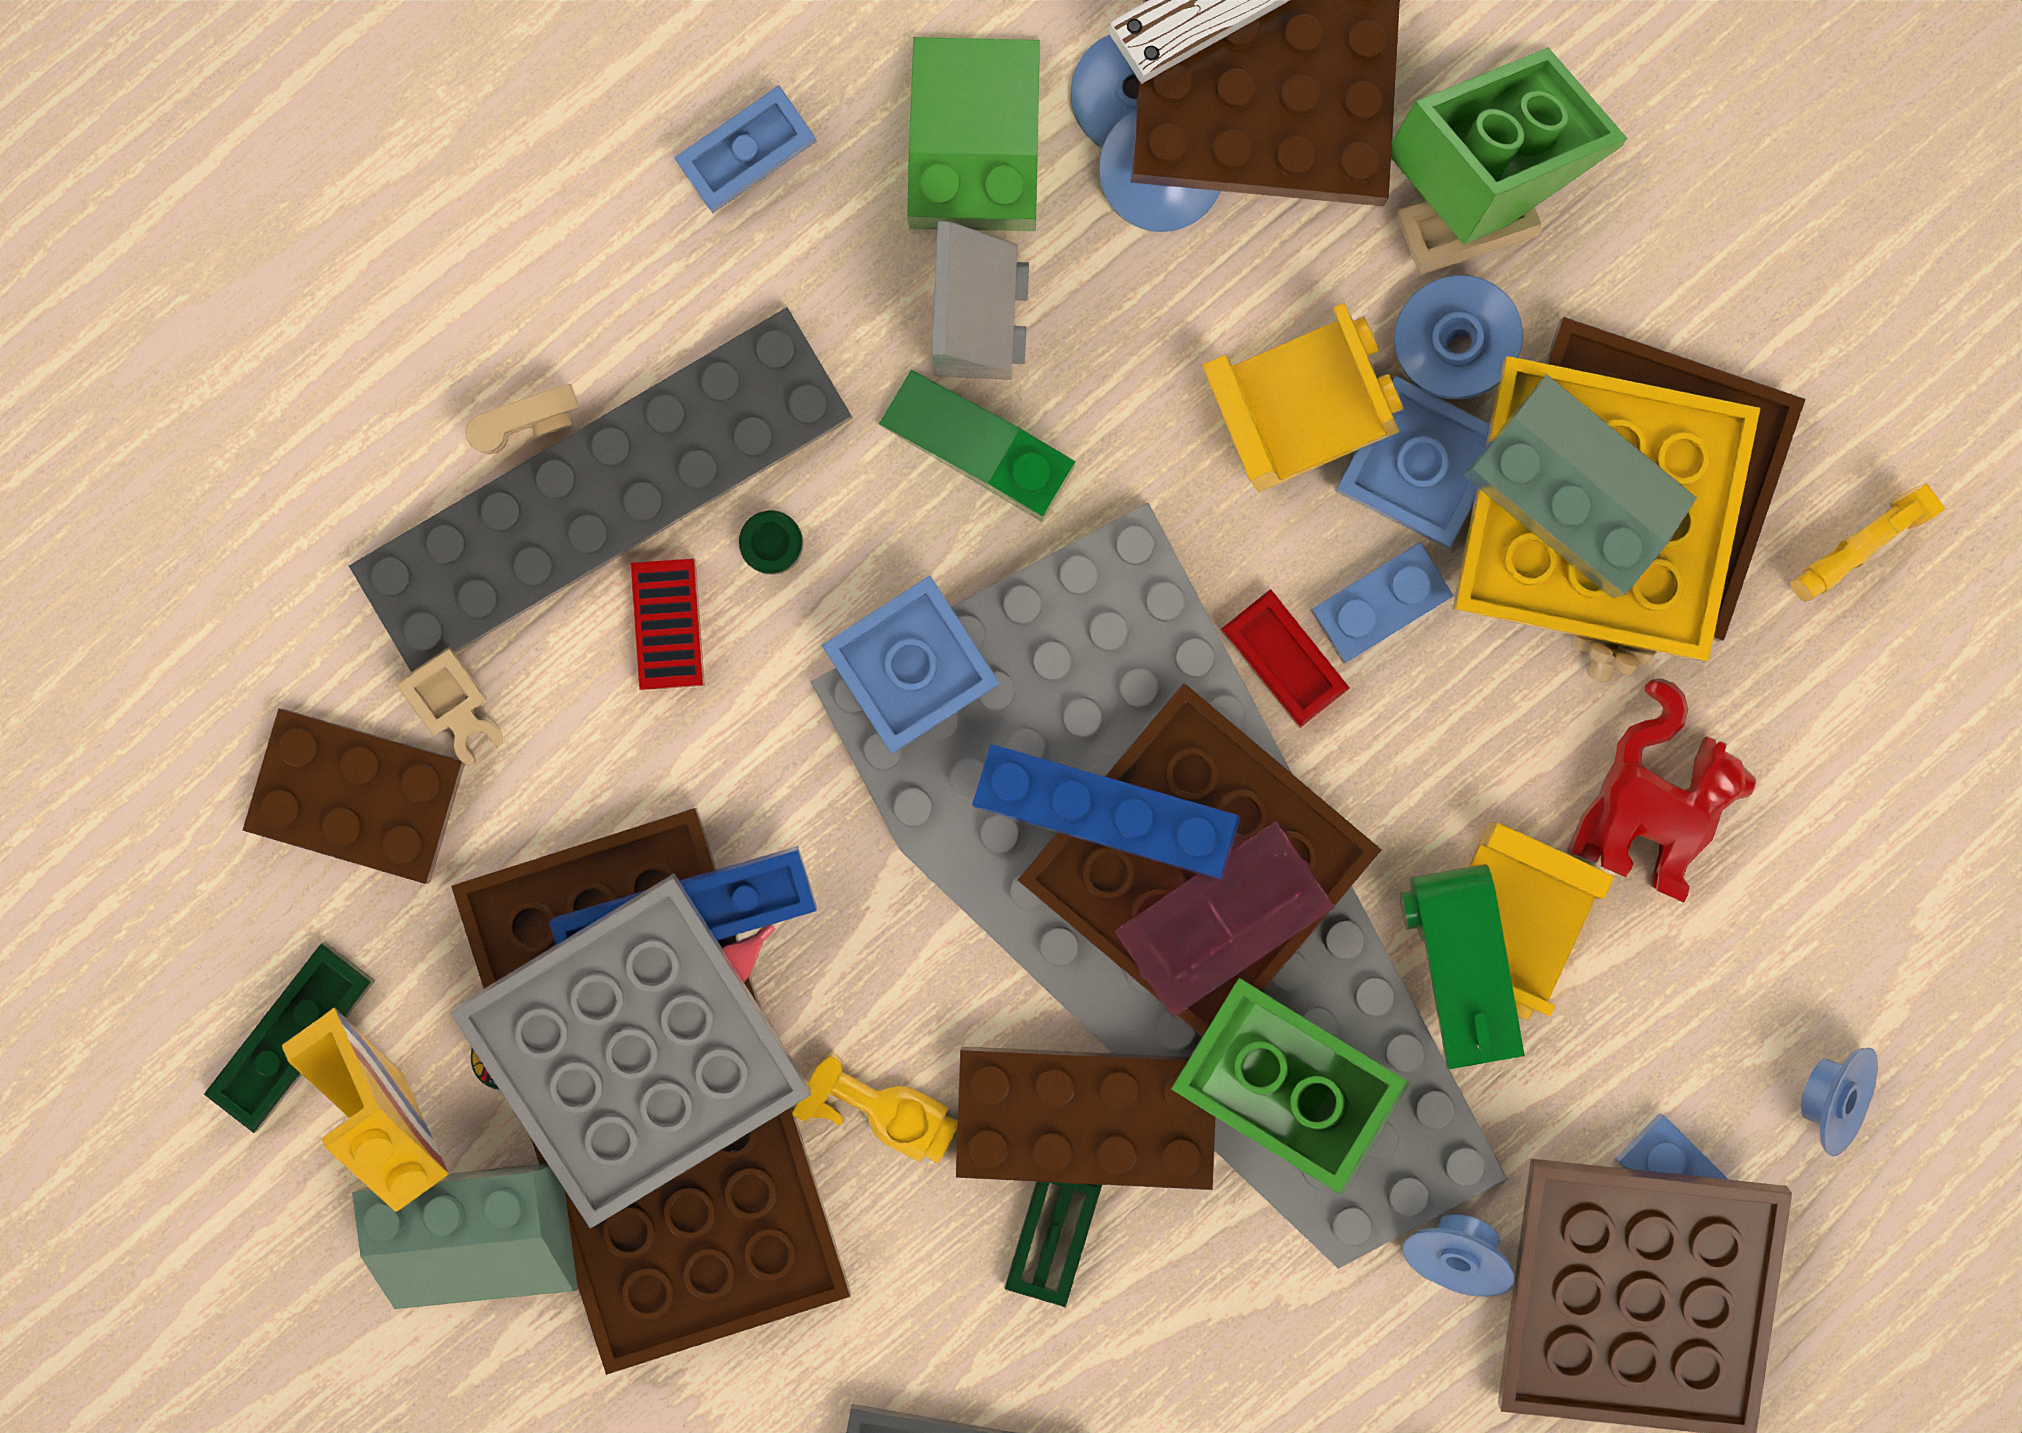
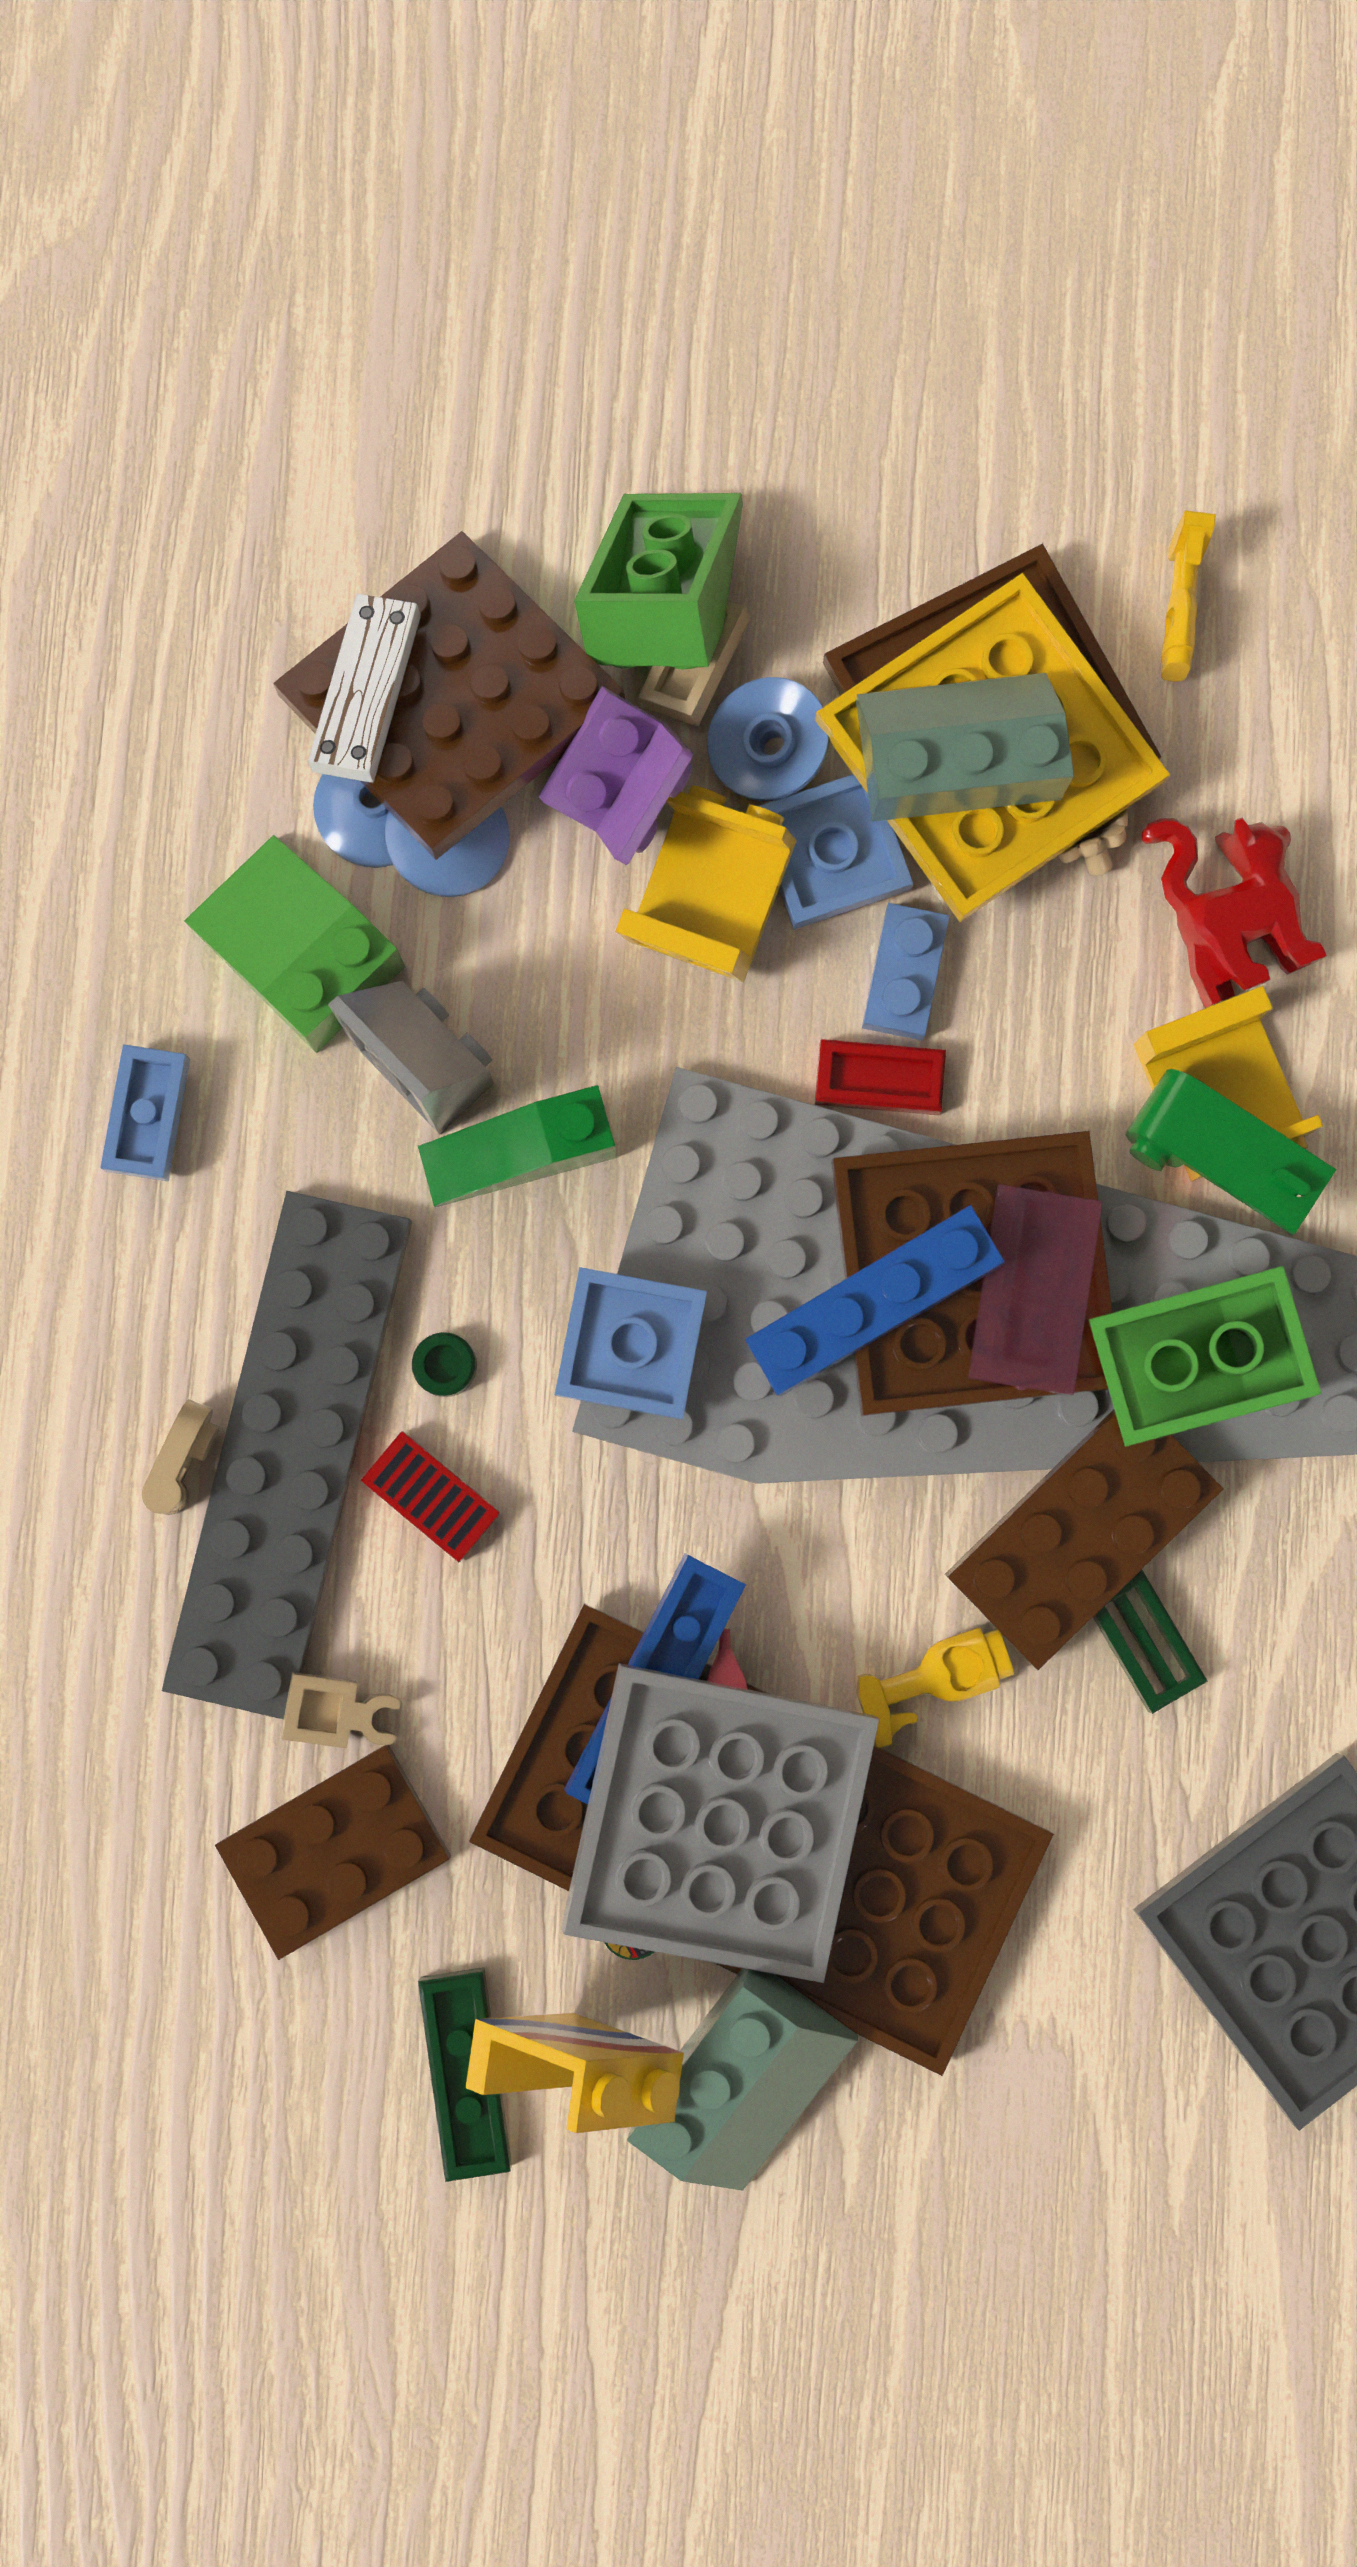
camera: 50 degrees left, 5 degrees down
(1322, 256) = (619, 774): none -> medium lavender bracket

